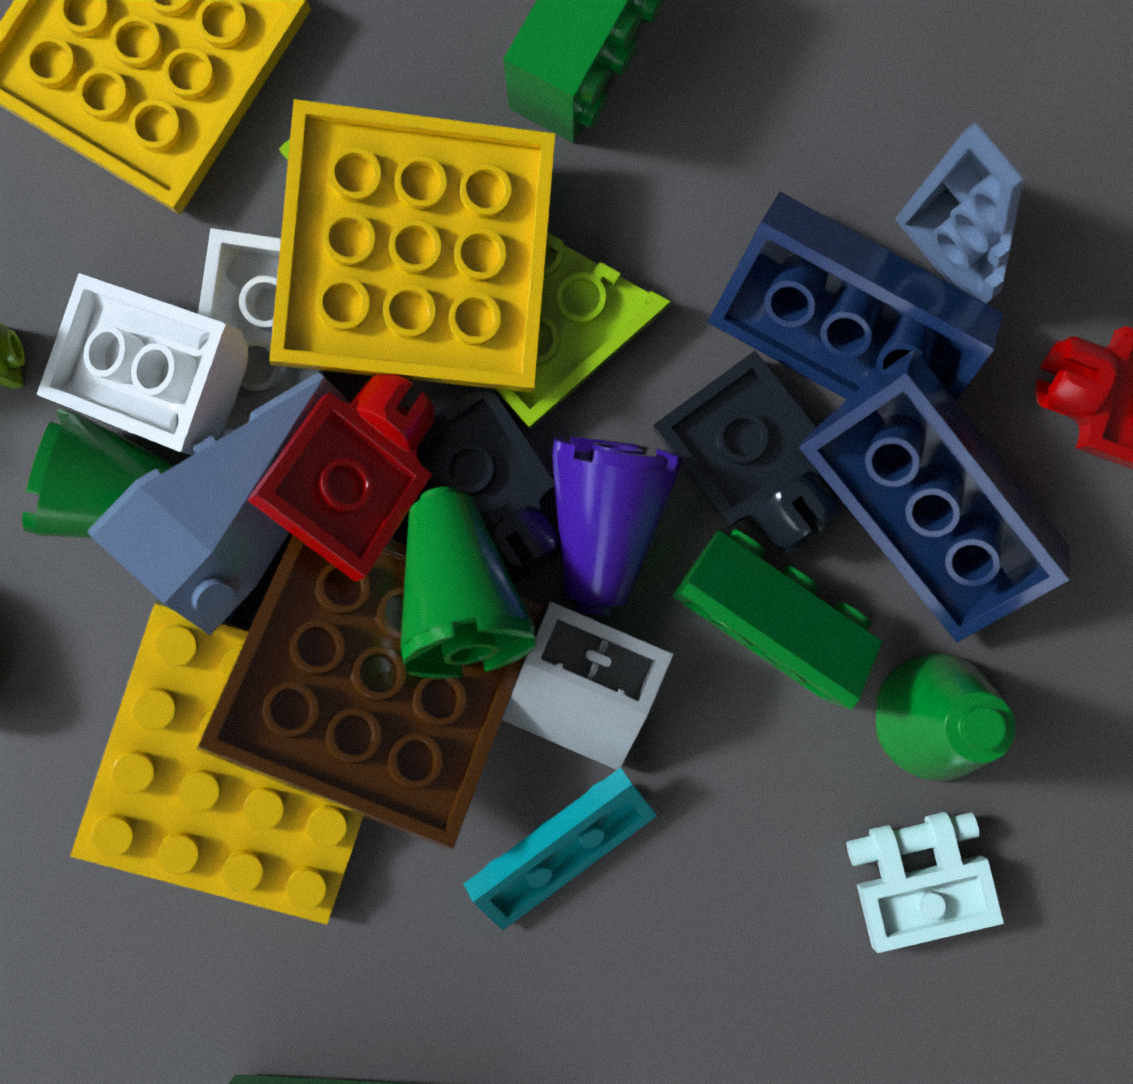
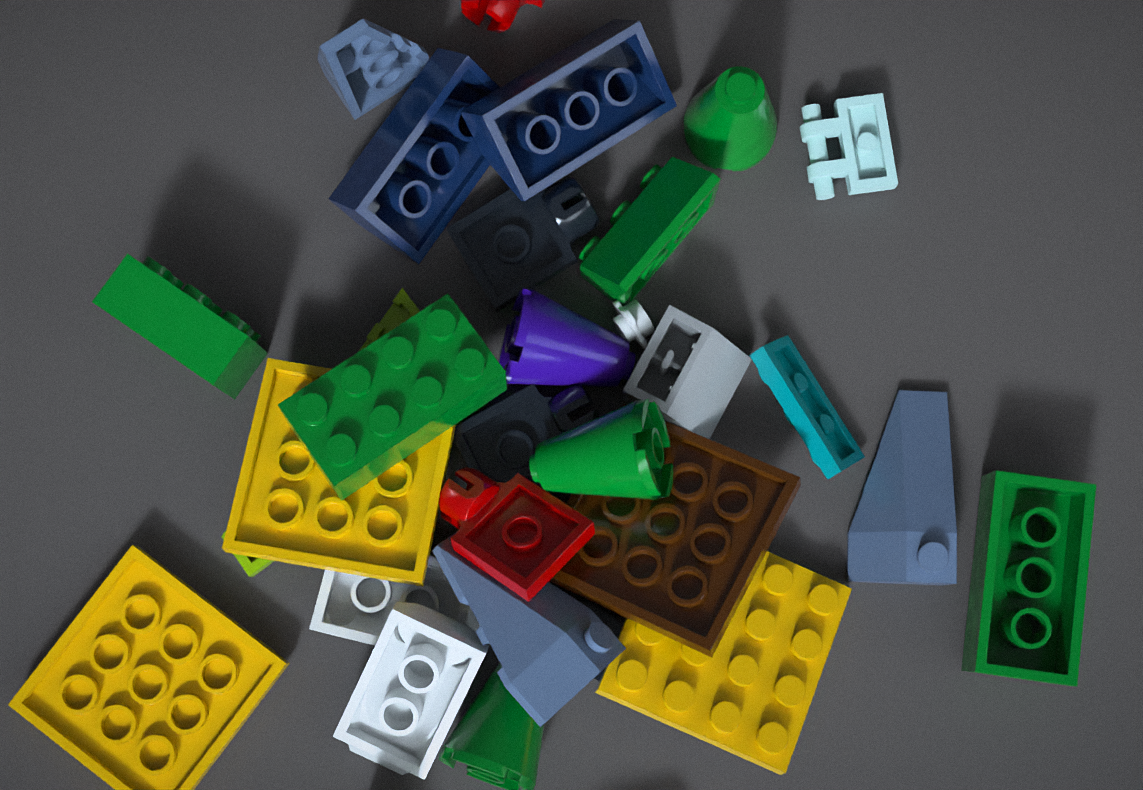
camera: 85 degrees left, 5 degrees down
(440, 992) = (907, 504): none -> sand blue wedge
(508, 294) = (394, 396): none -> green brick
(651, 608) = (633, 322): none -> white plate

